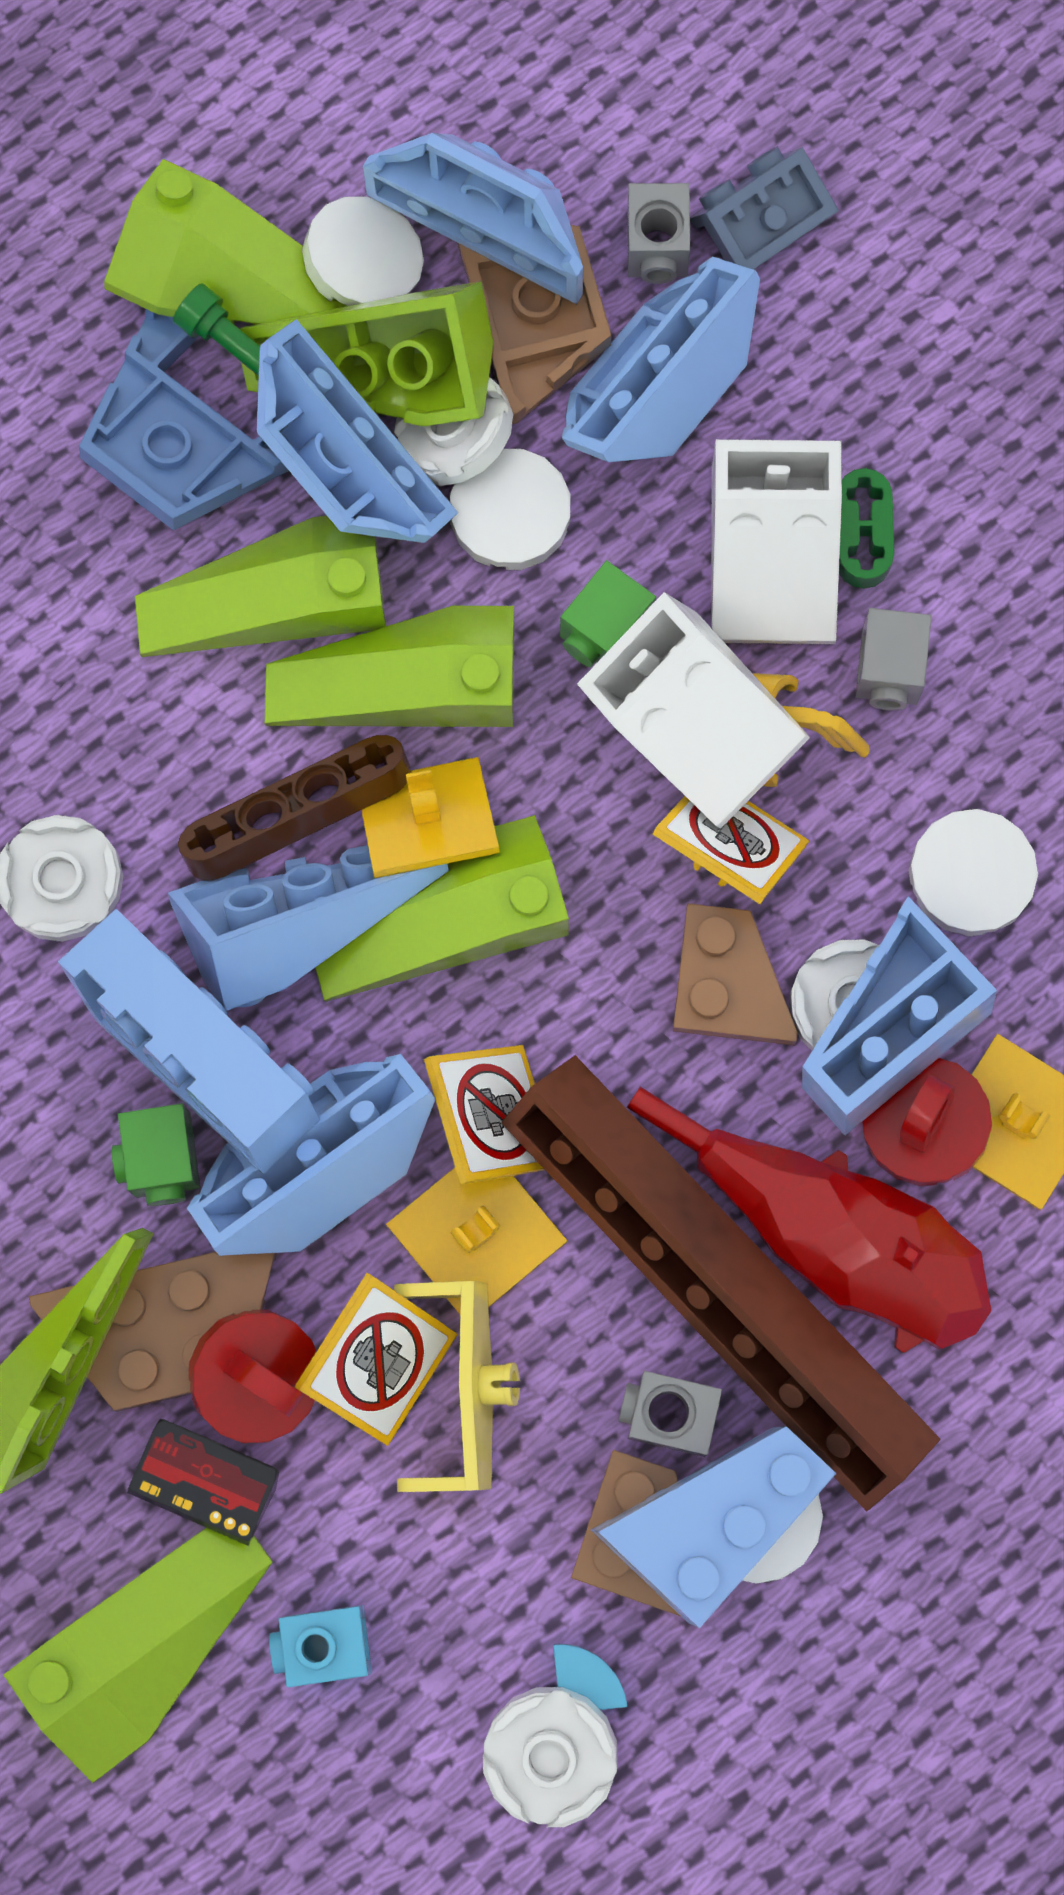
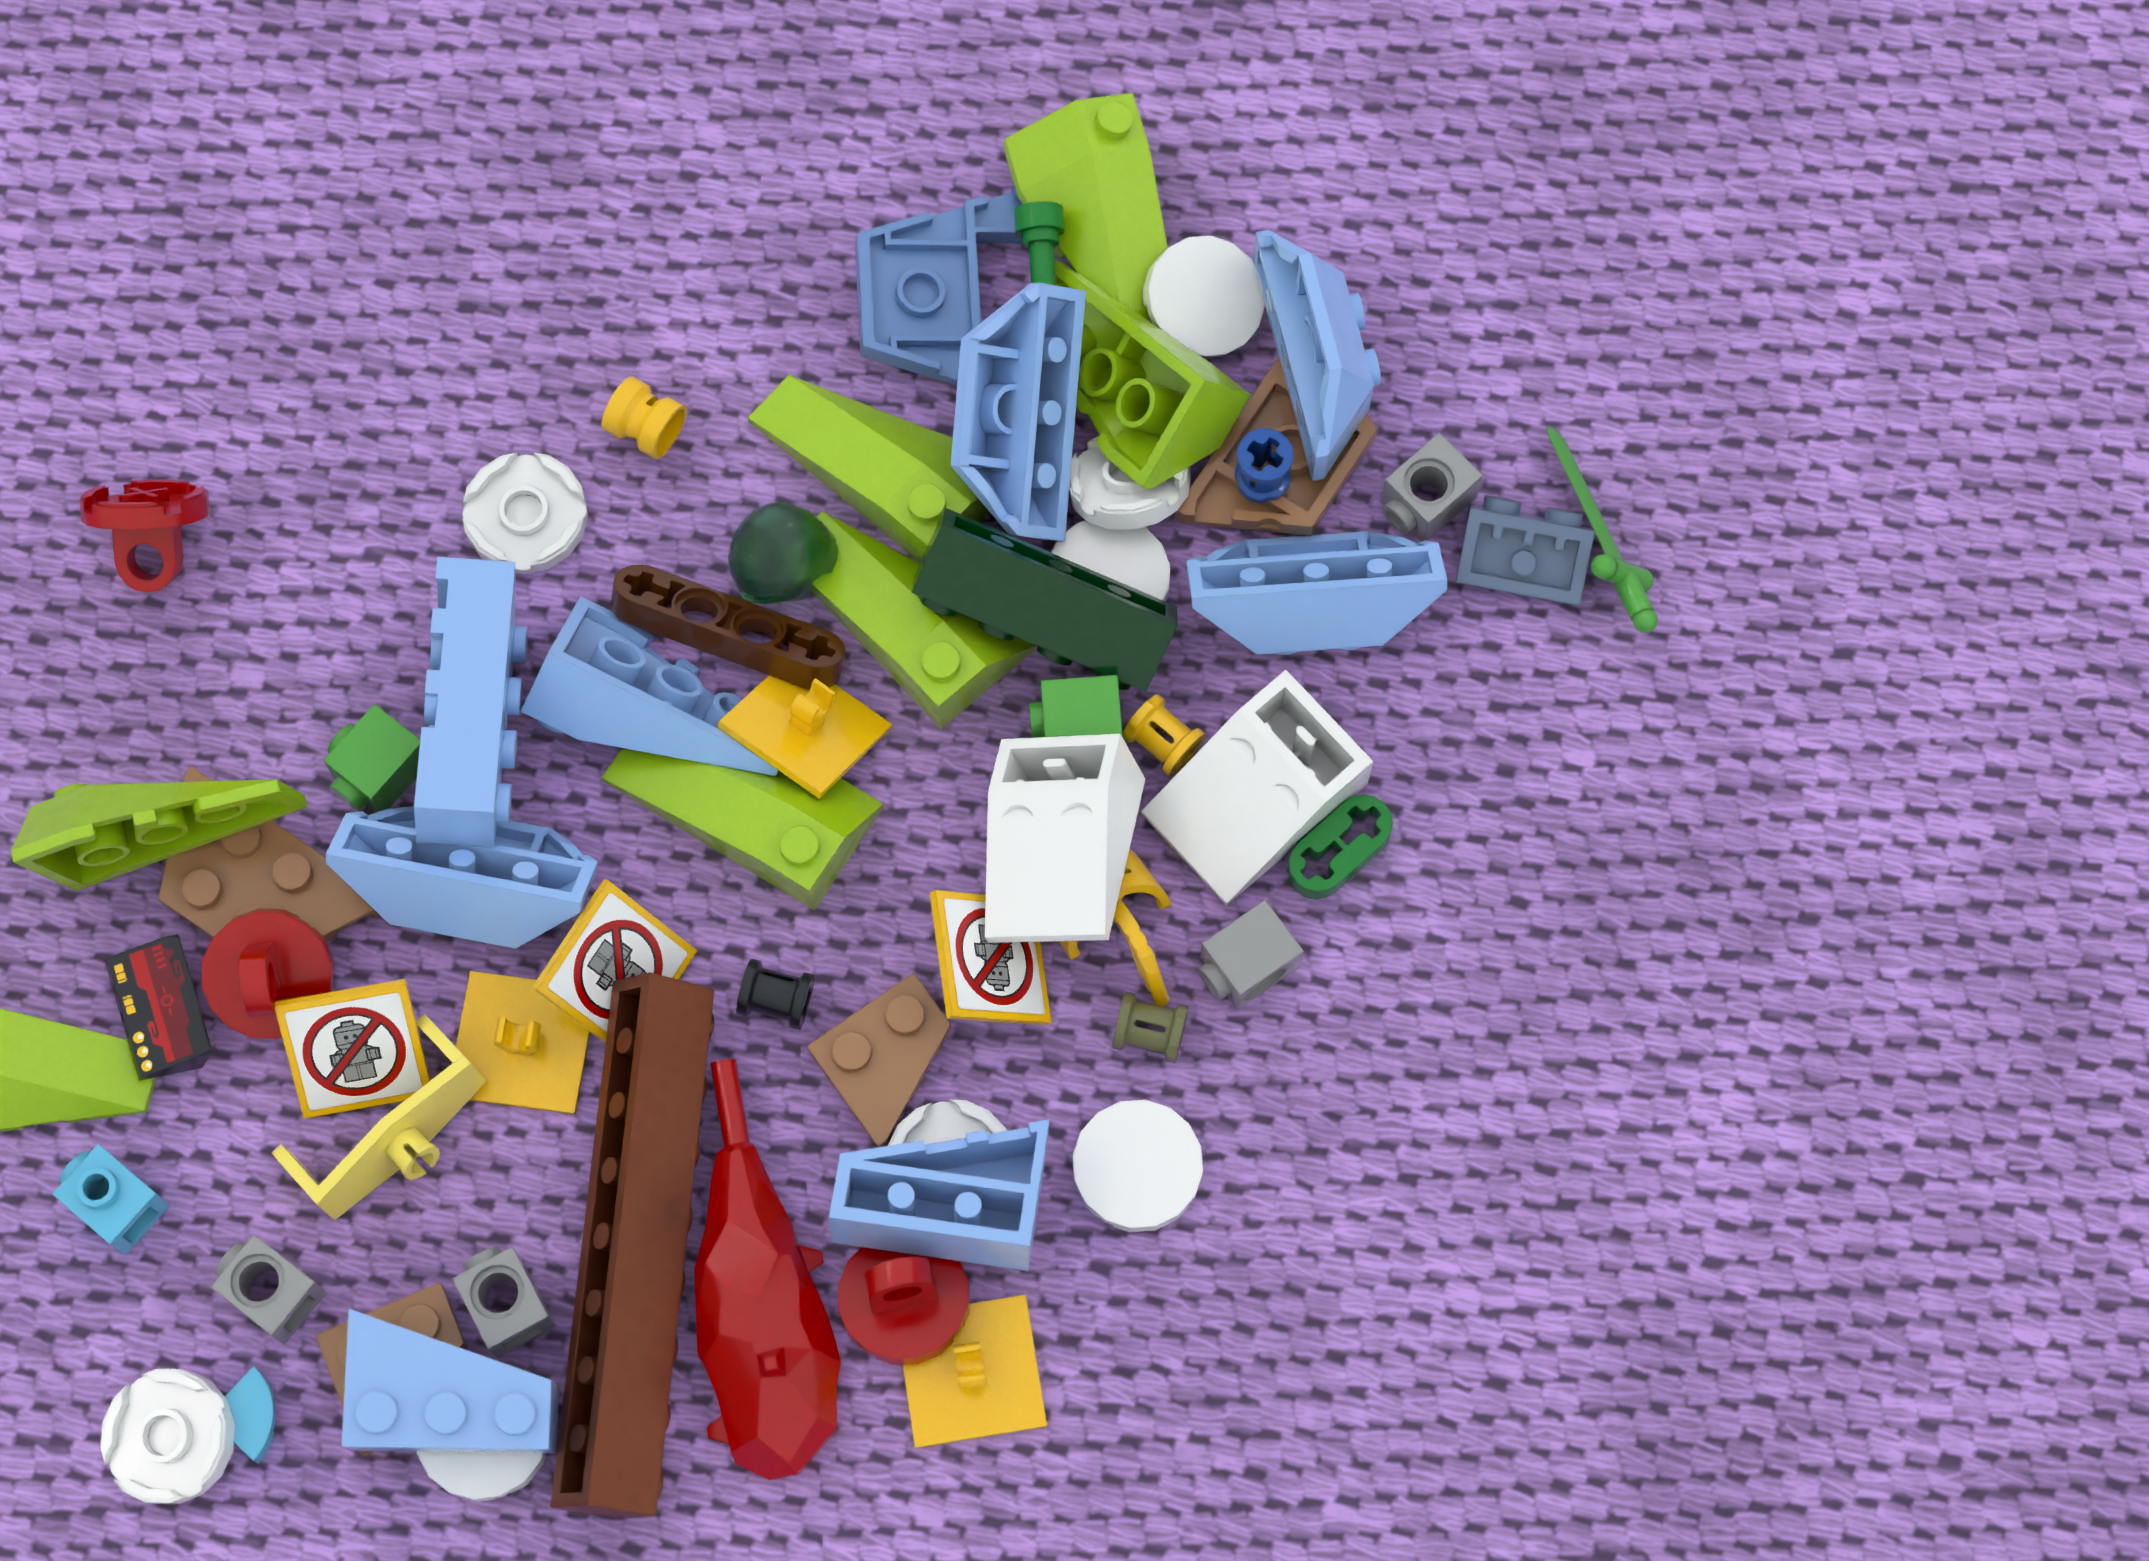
camera: 45 degrees right, 5 degrees down
(71, 725) = (641, 416): none -> yellow wheel
(276, 720) = (780, 553): none -> clear green hair
(499, 562) = (1044, 601): none -> dark green brick
(532, 1593) = (290, 1303): none -> light grey brick
(554, 312) = (1255, 451): none -> blue bush
(614, 1015) = (775, 994): none -> black bush
(672, 572) = (1172, 755): none -> yellow bush
(846, 160) = (1629, 579): none -> bright green sword
(903, 769) = (1136, 1011): none -> olive bush

